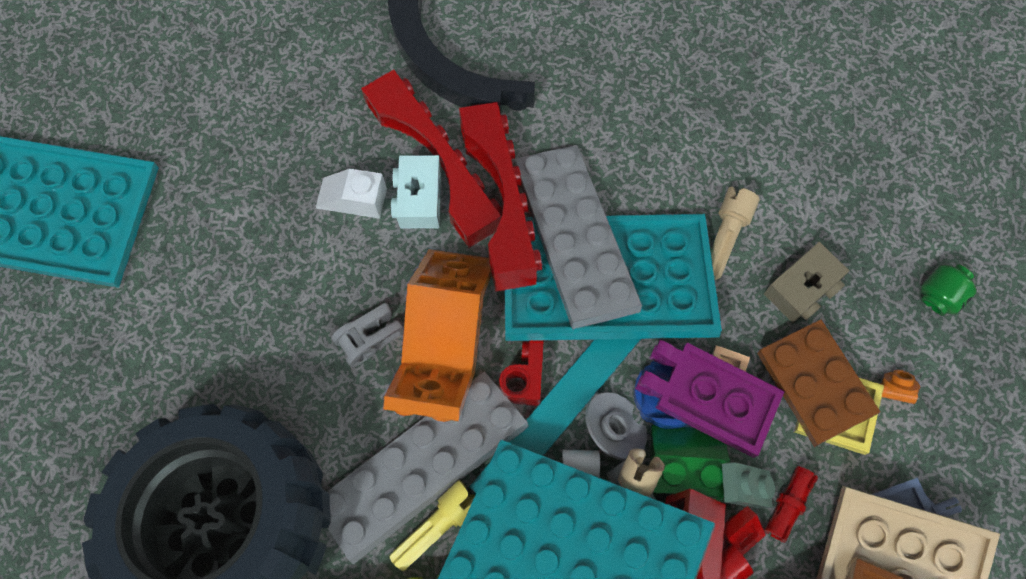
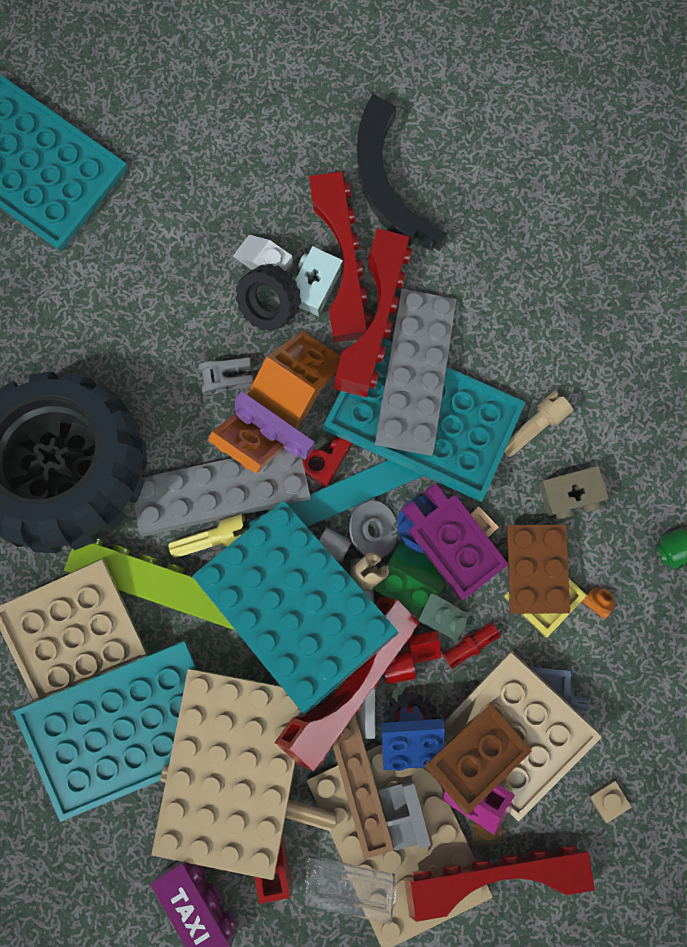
camera: 25 degrees right, 10 degrees up
(362, 249) = (282, 284): none -> black tyre
(450, 360) = (273, 426): none -> medium lavender plate

